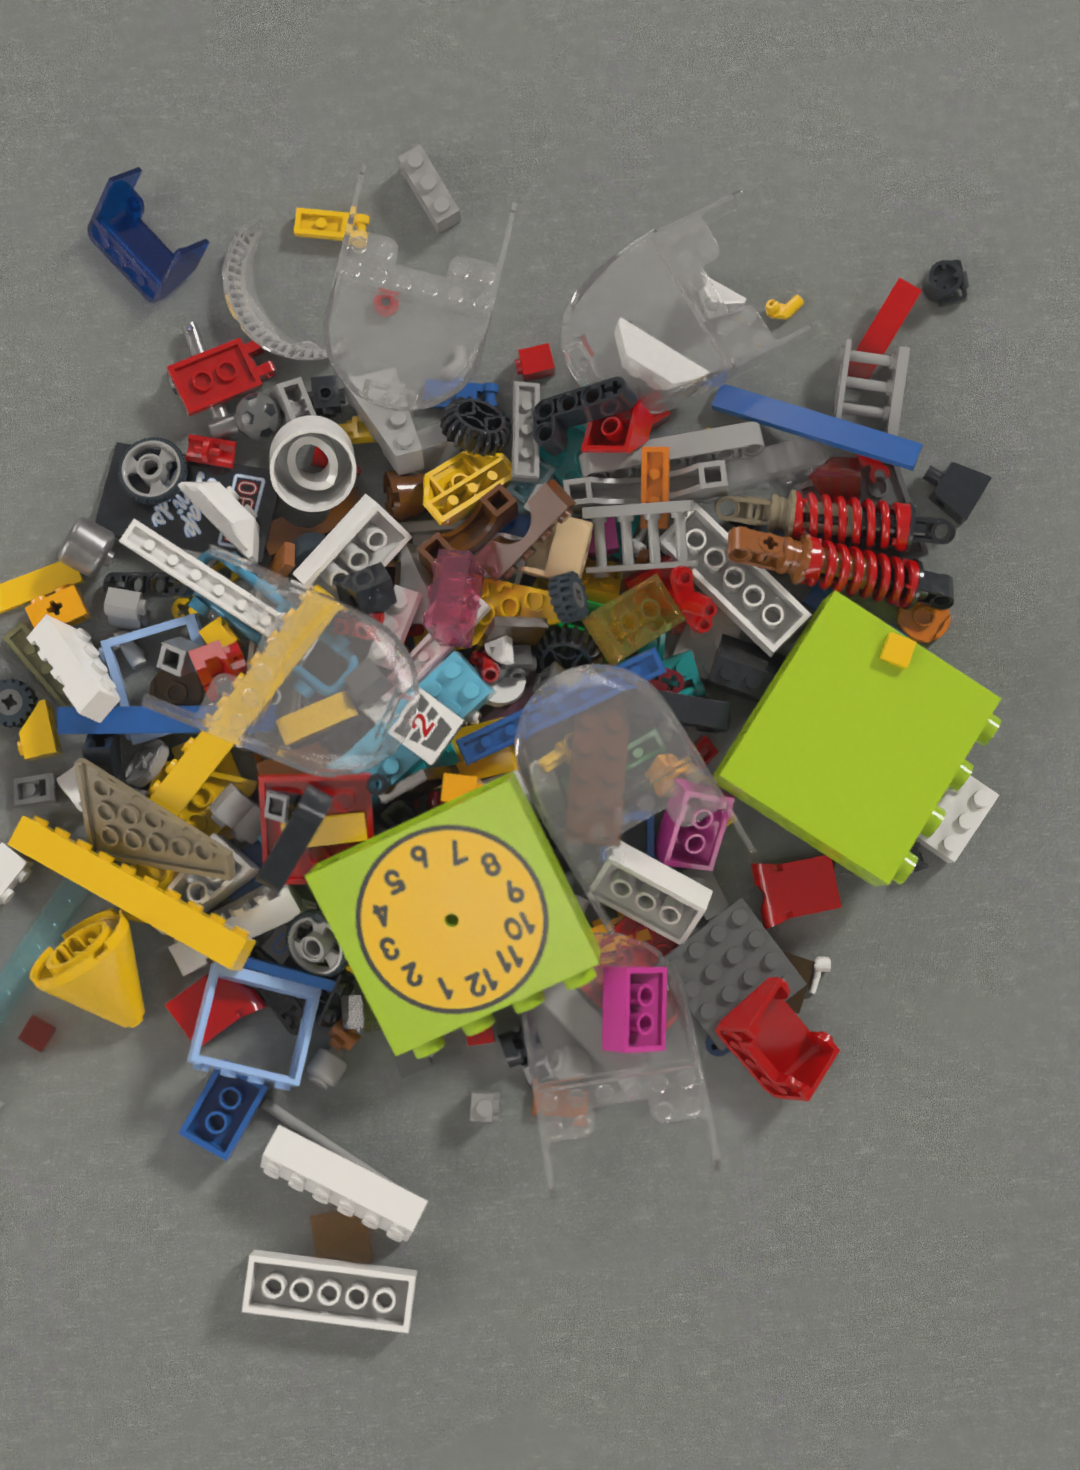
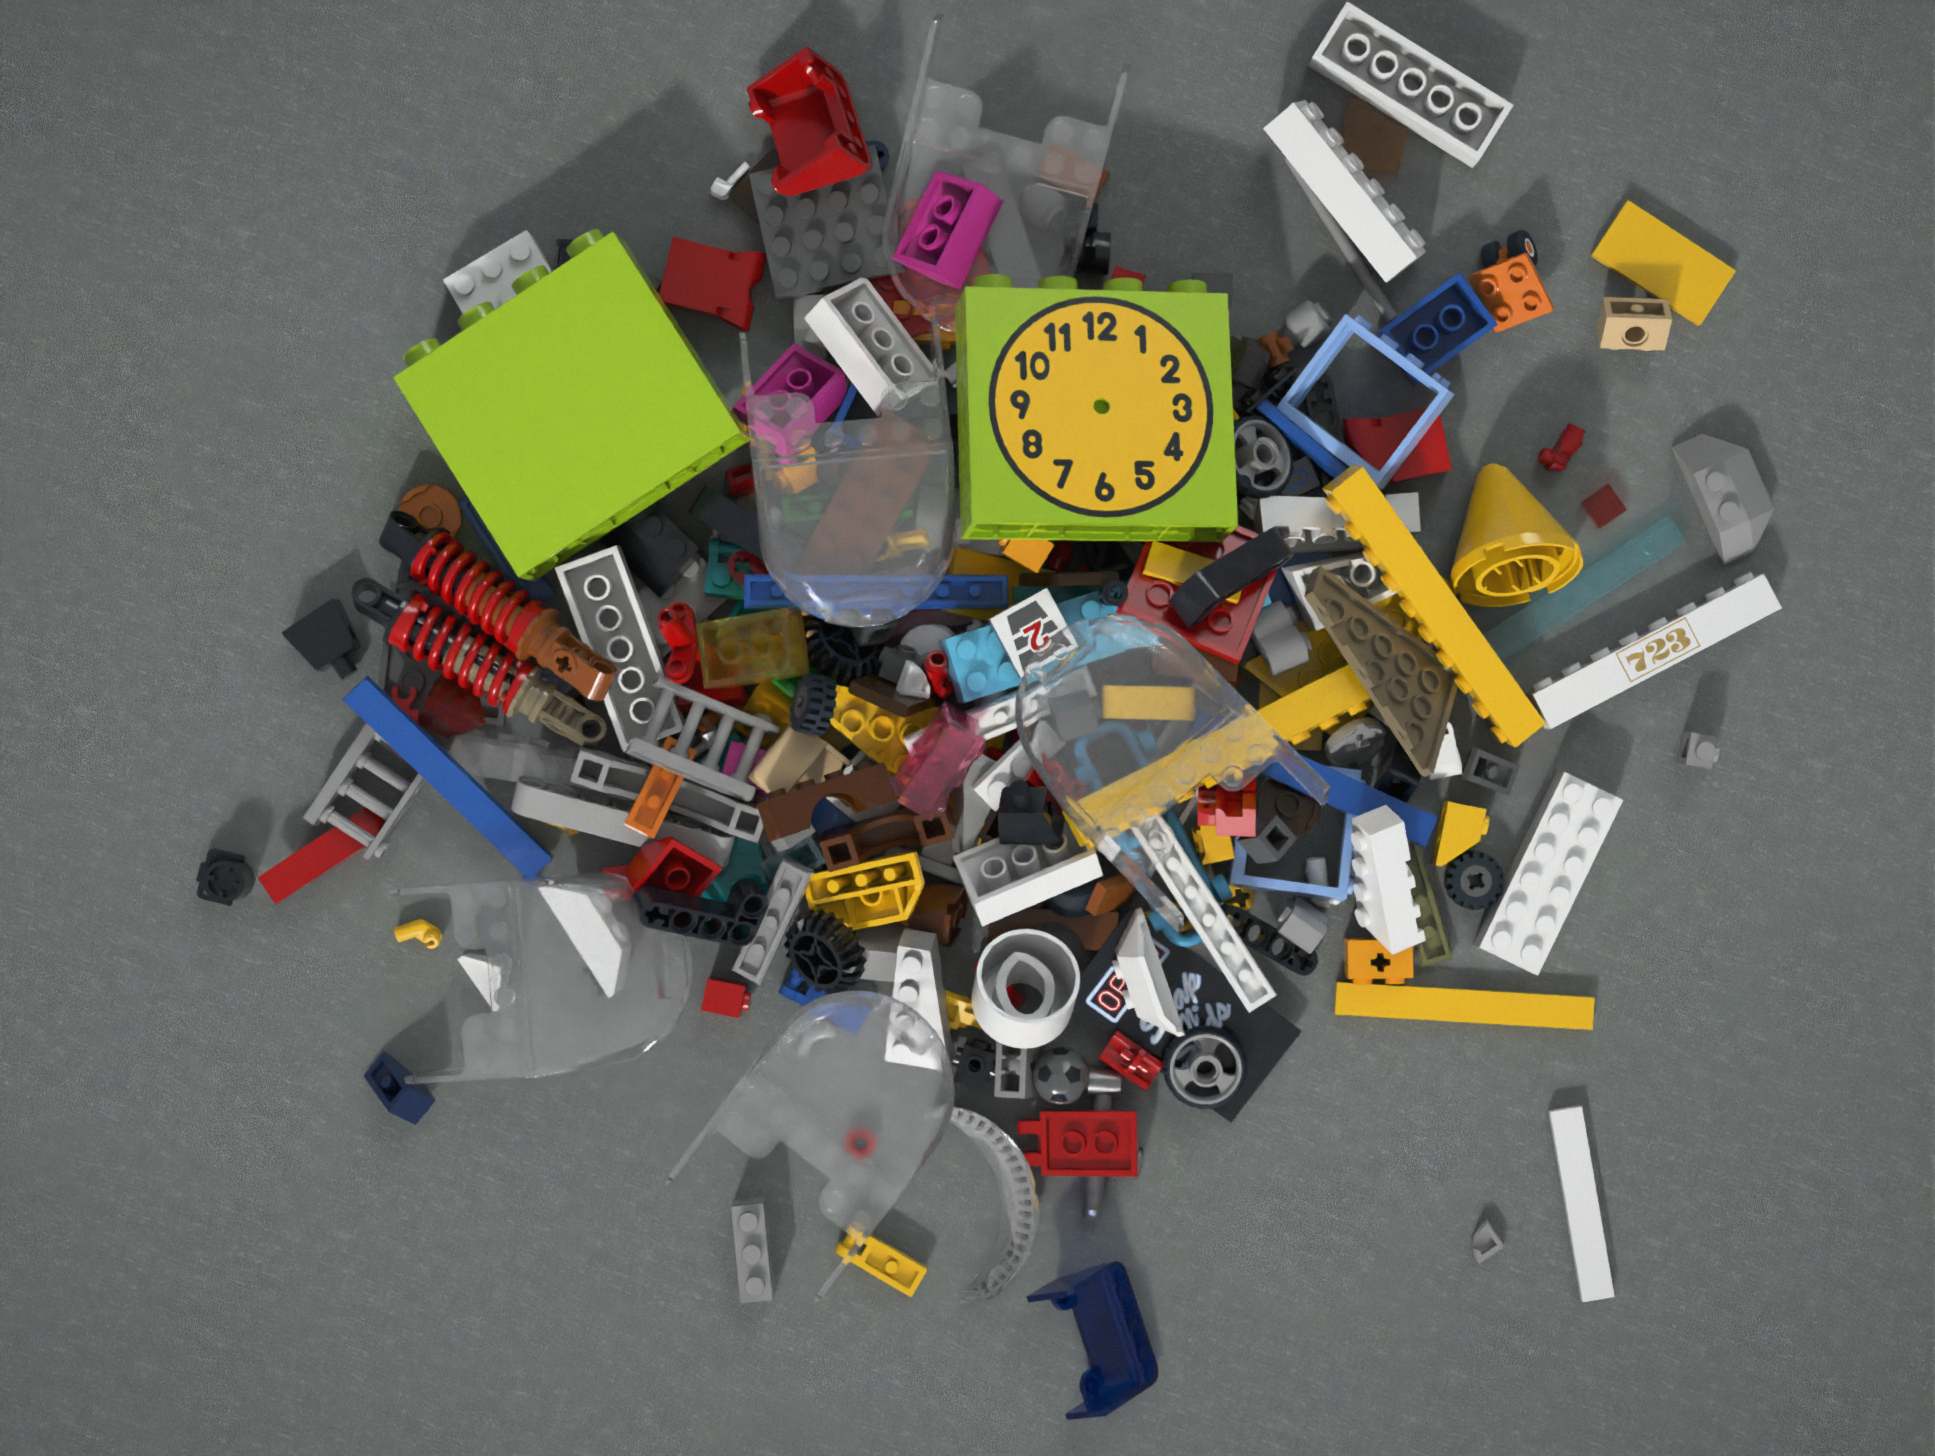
camera: 155 degrees left, 5 degrees up
(73, 1184) = (1634, 323): none -> tan brick
(73, 1244) = (1663, 262): none -> yellow tile
(86, 1065) = (1564, 448): none -> red arm
(87, 547) = (1314, 1013): flat silver head -> none
(184, 1172) = (1510, 282): none -> orange plate
(280, 805) = (1229, 619): black slope -> none
(484, 1106) = (1156, 205): light grey brick -> none
(757, 191) = (400, 1099): none -> dark blue slope
(897, 650) = (481, 479): yellow tile -> none

